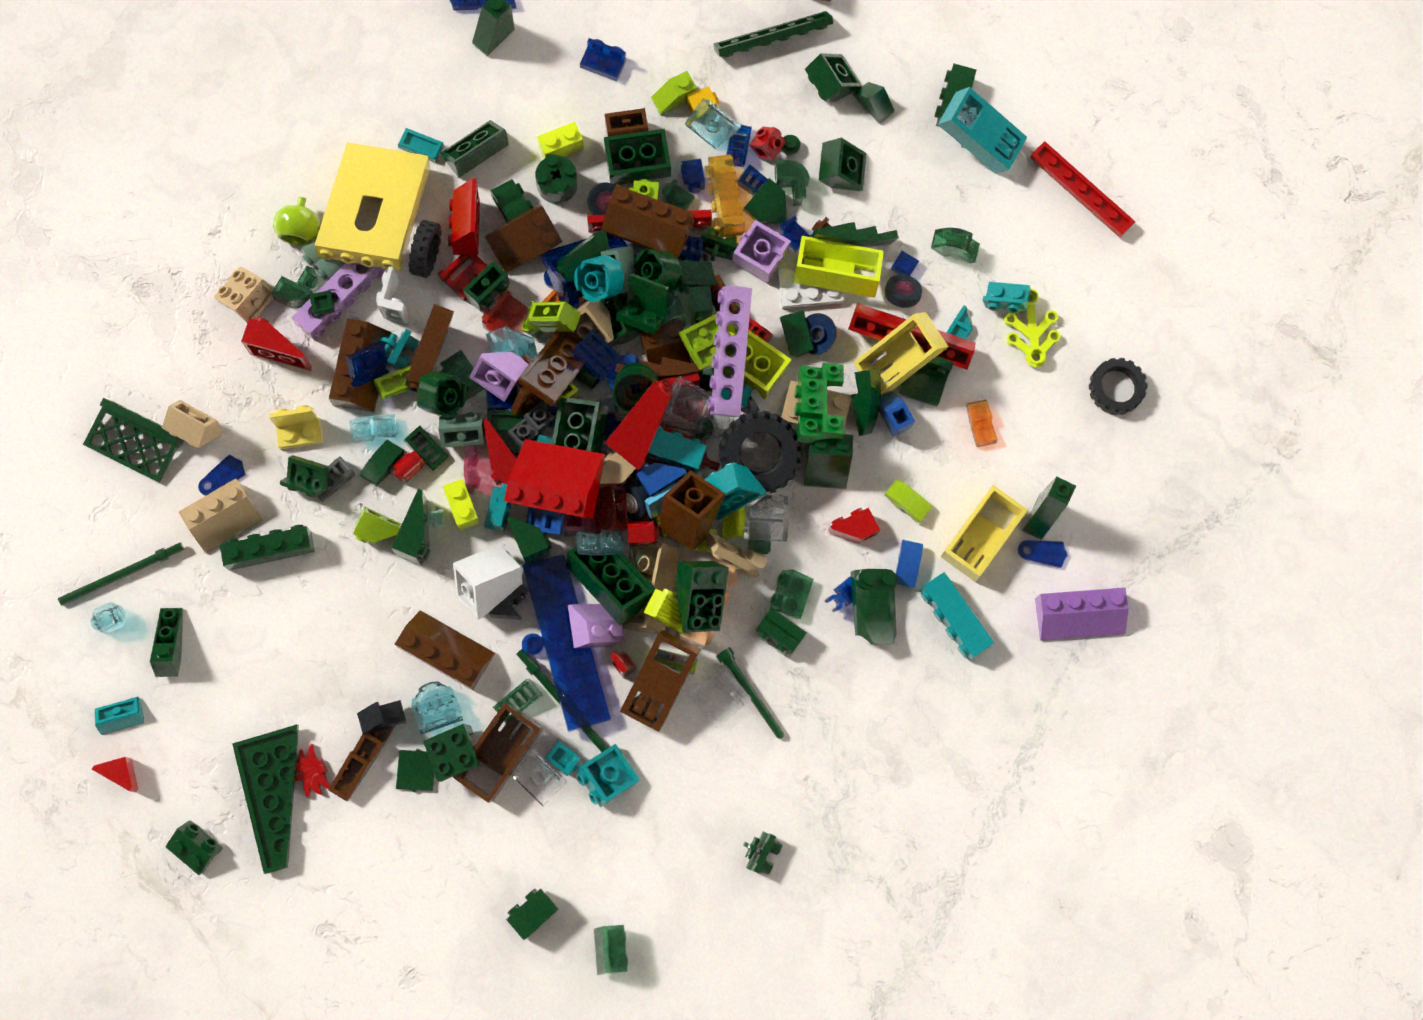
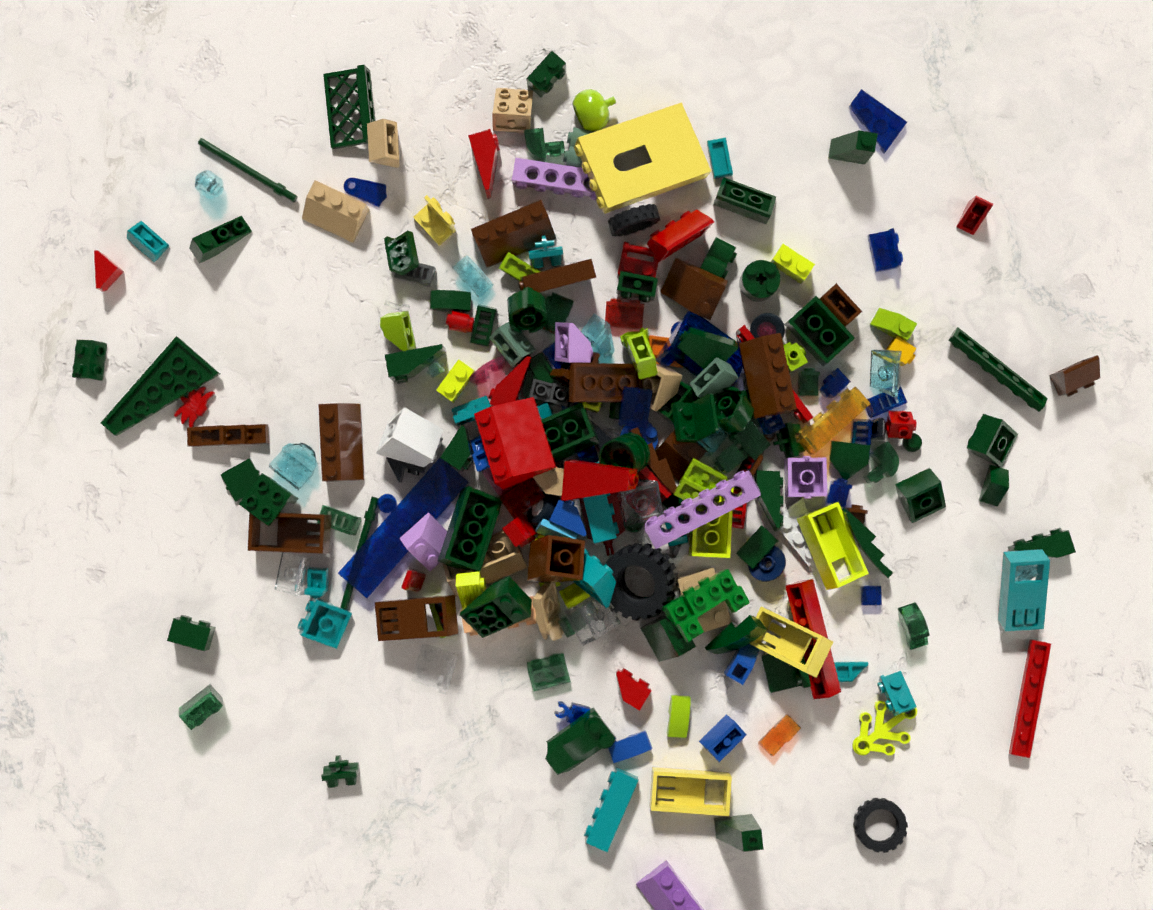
camera: 65 degrees right, 10 degrees up
(234, 243) = (546, 74): none -> dark green brick
(267, 548) = (337, 266): dark green brick -> none
(322, 303) = (540, 173): dark green tile -> none
(367, 364) = (514, 240): clear blue plate -> none
(381, 717) = (262, 430): black slope -> none
(391, 307) = (573, 218): white bracket -> none
(599, 278) = (693, 371): teal brick -> none
(603, 544) = (489, 505): clear light blue slope -> none
(727, 658) = (469, 654): dark green piece -> none
(759, 162) = (878, 429): none -> black slope
(763, 293) = (770, 500): none -> dark green slope
(780, 632) = (513, 682): dark green brick -> none
(903, 291) = (847, 608): black wheel -> none
(952, 472) = (722, 738): none -> blue brick
(1044, 552) = (707, 846): clear blue piece -> none

